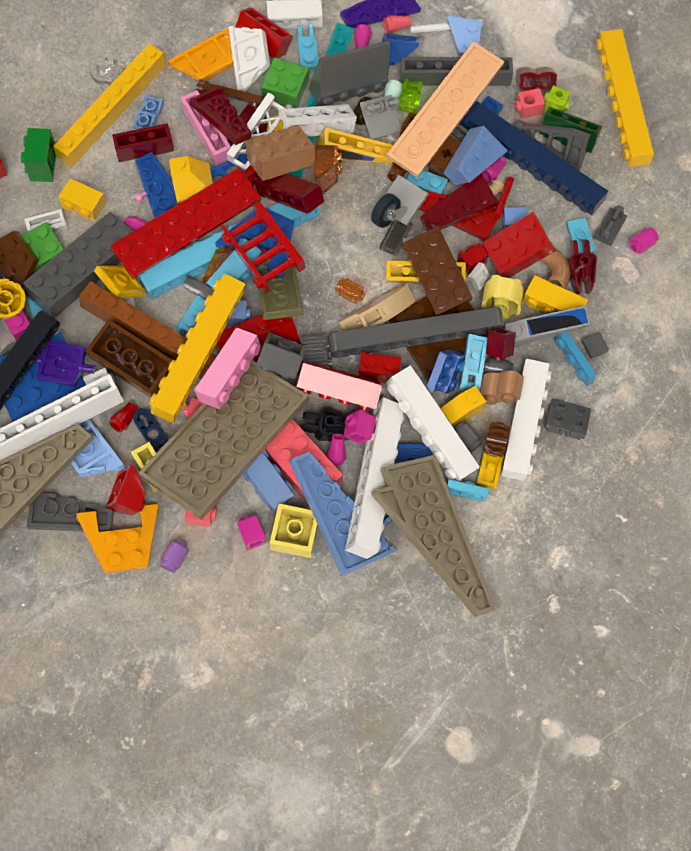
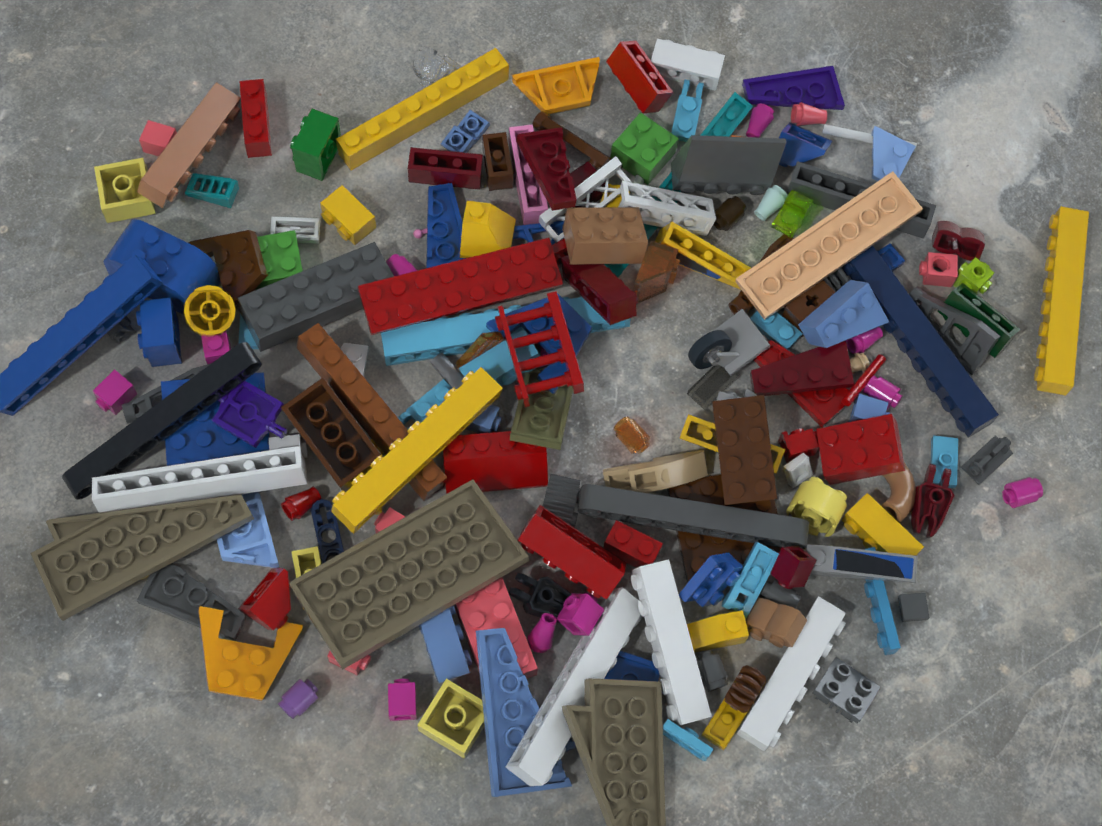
camera: 15 degrees right, 0 degrees up
(119, 281) = (354, 333): yellow tile -> none
(180, 125) = (497, 161): none -> reddish brown brick
(228, 368) = (443, 488): bright pink brick -> none
(249, 55) = (611, 100): white wing -> none
(281, 356) = (514, 493): dark grey hinge -> none
(381, 116) = (747, 227): light grey hinge -> none
(518, 200) = (883, 390): none -> dark pink brick

